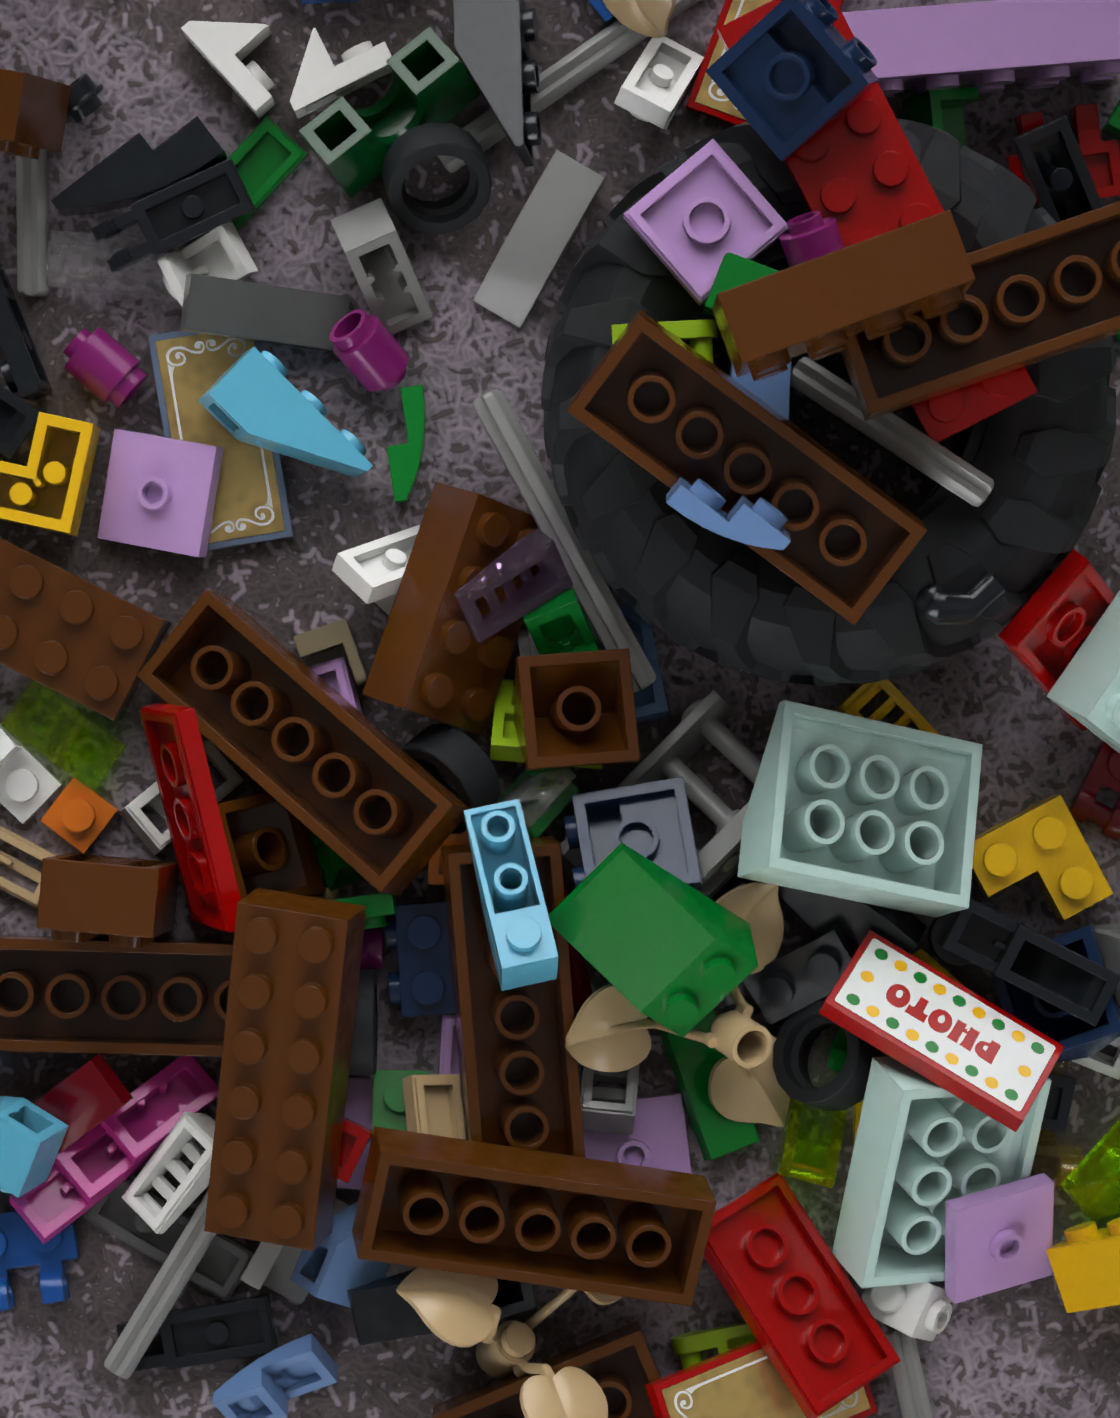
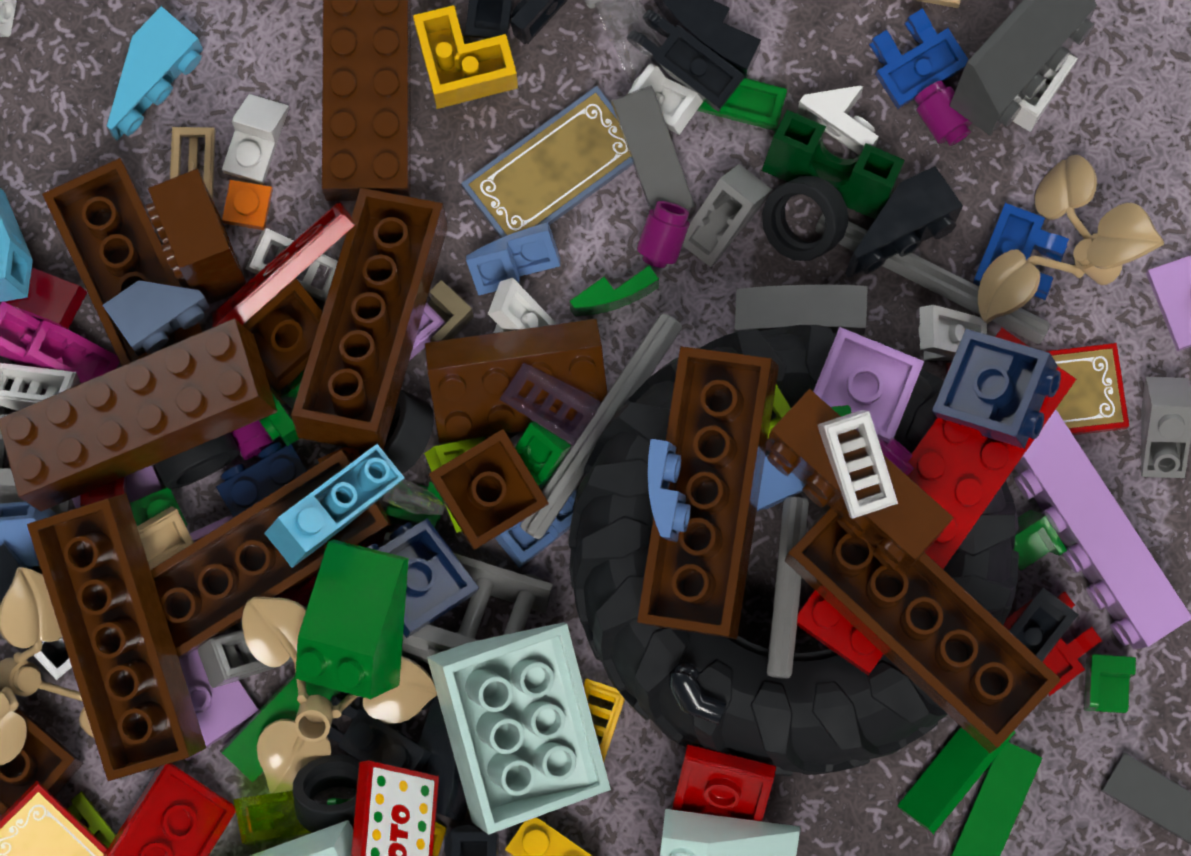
camera: 70 degrees right, 10 degrees down
(63, 734) = (296, 166): clear neon green slope -> none
(104, 366) = (560, 67): magenta brick -> none
(160, 493) = (494, 146): lavender plate -> none
(167, 991) = (153, 311): none -> sand blue slope
(224, 48) = (817, 39): white slope -> none
(270, 413) = (585, 187): medium azure slope -> none
(302, 539) = (513, 257): none -> medium blue slope
(782, 278) = (874, 458): none -> white slope

